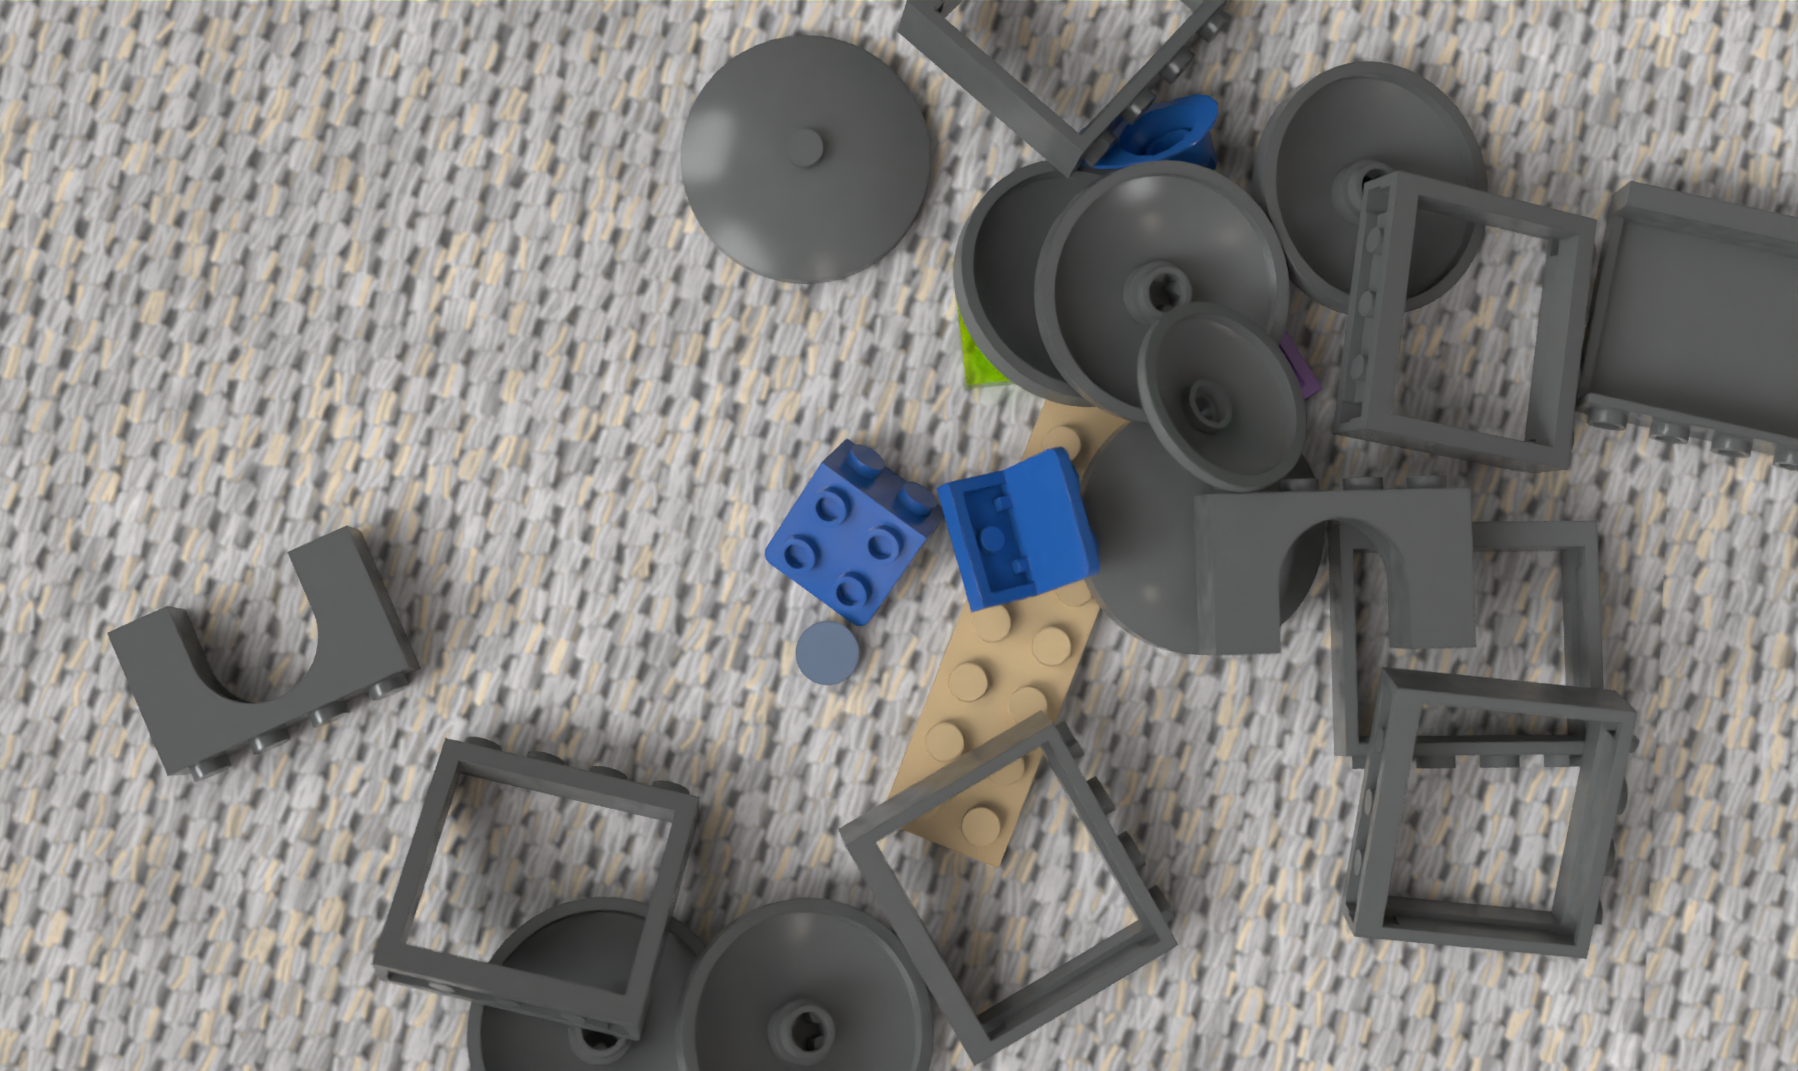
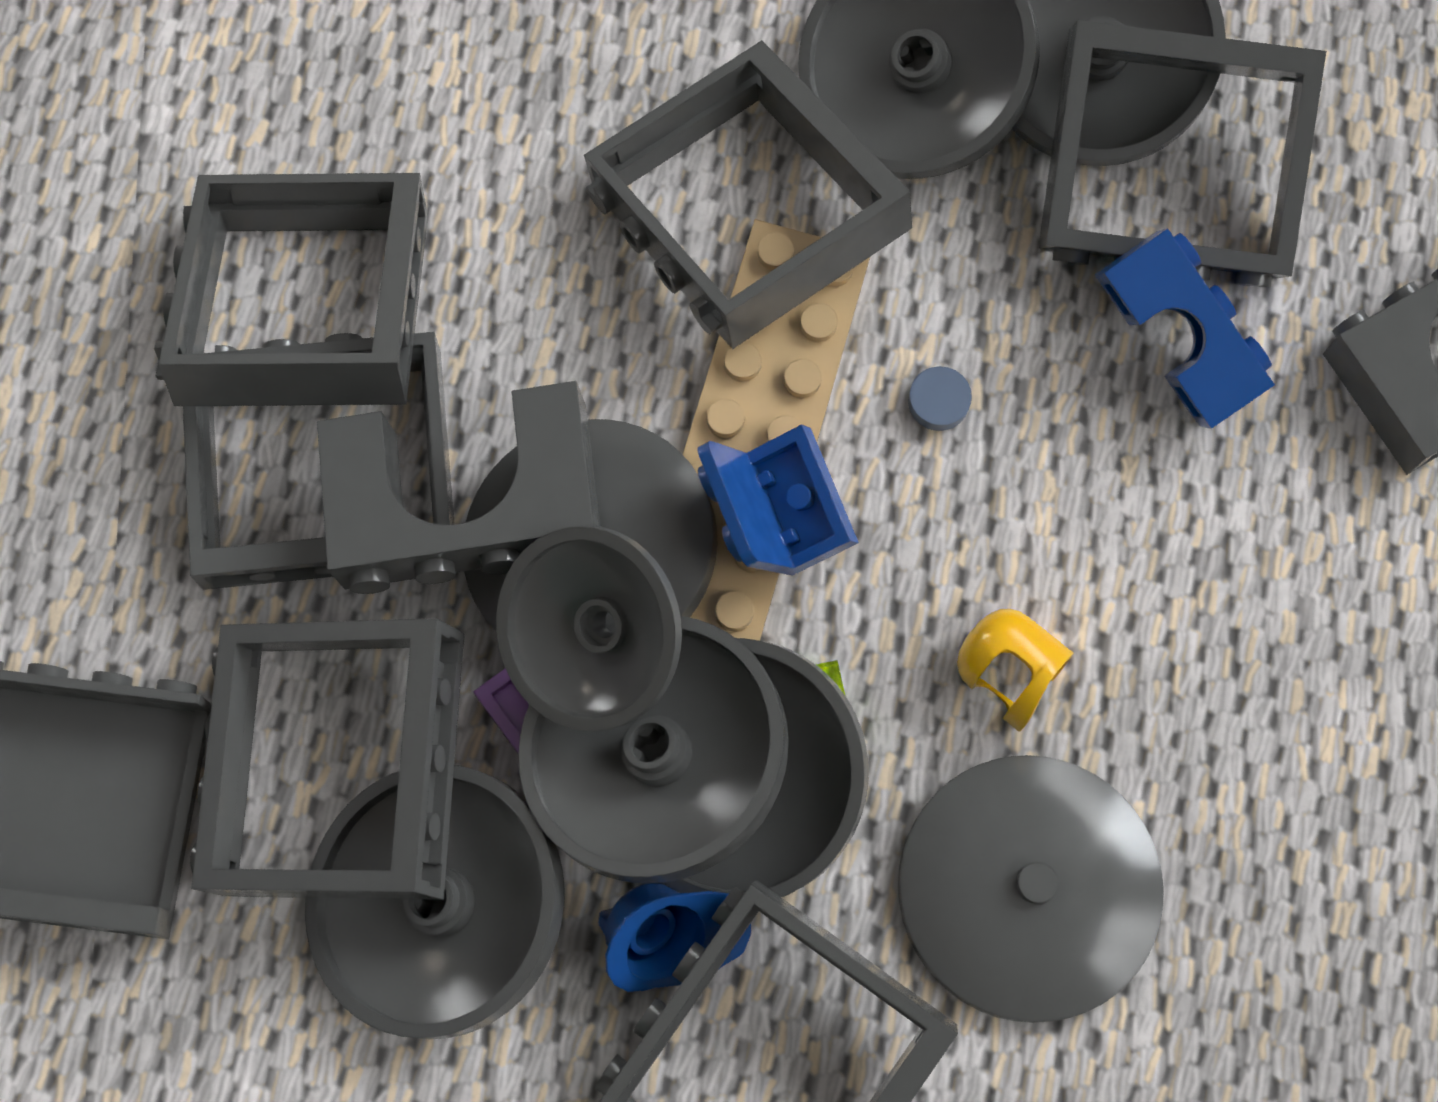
camera: 175 degrees right, 10 degrees down
(590, 736) = (1222, 367): none -> blue arch
(783, 378) = (1014, 634): none -> yellow helmet
(854, 531) = (928, 513): blue bracket -> none

